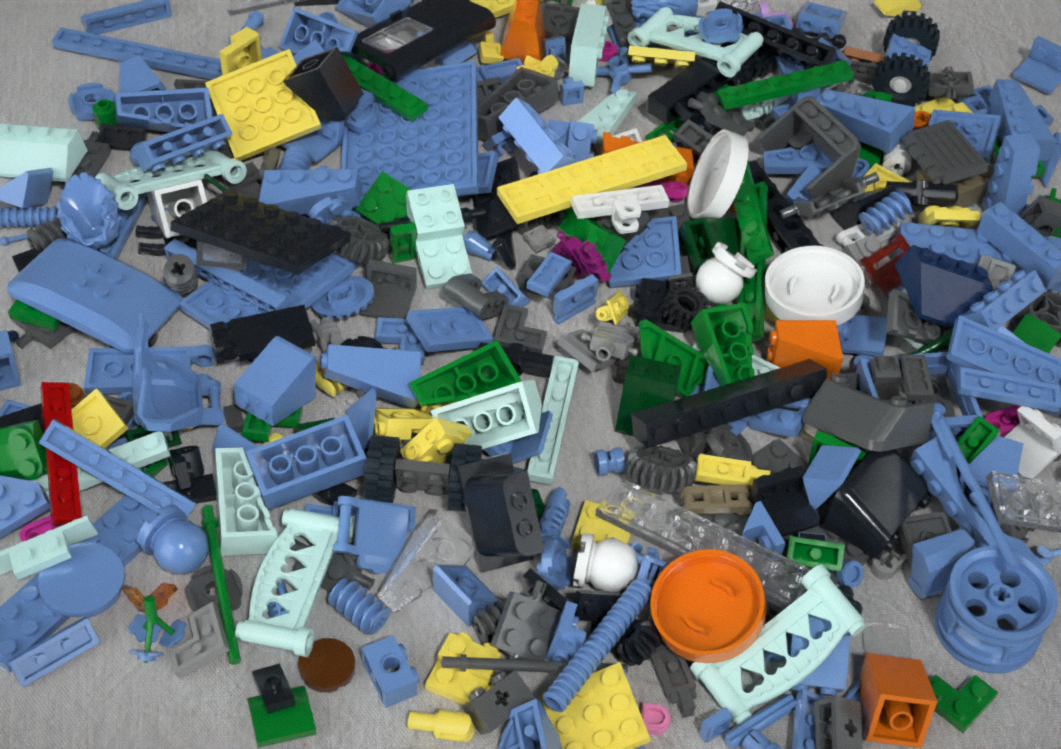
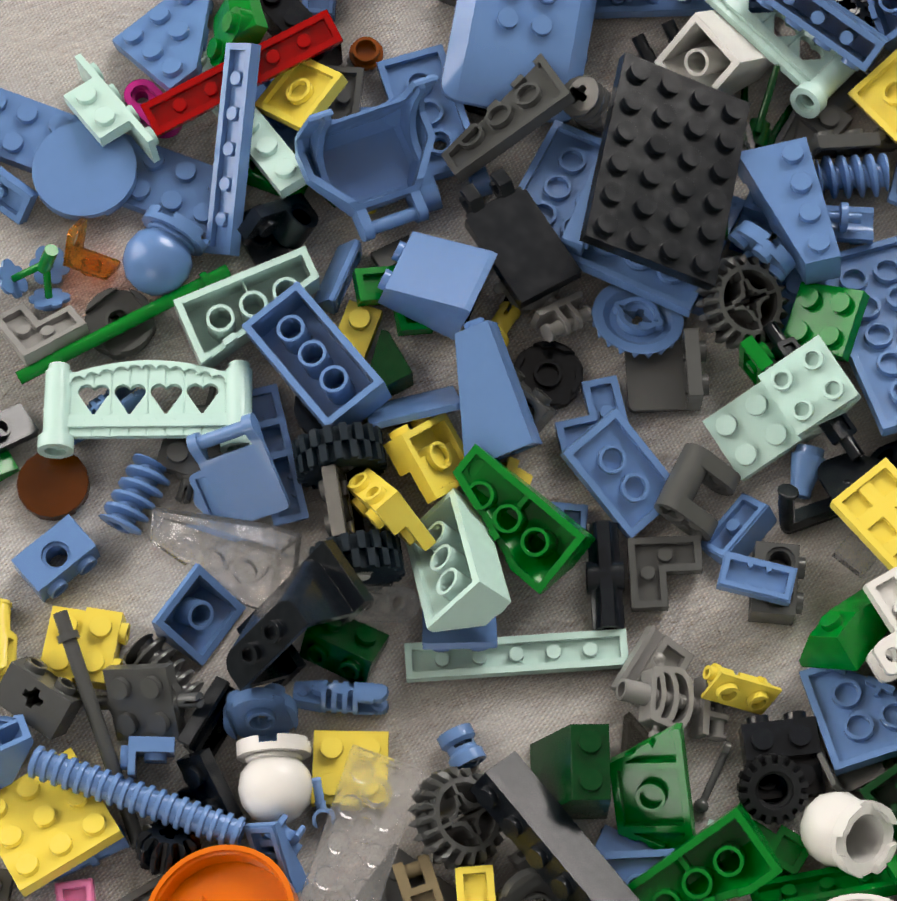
camera: 80 degrees right, 20 degrees up
(174, 312) = (507, 122): none -> dark grey wing
(575, 299) = (752, 637): medium blue plate -> none
(583, 257) = (804, 615): magenta torso -> none

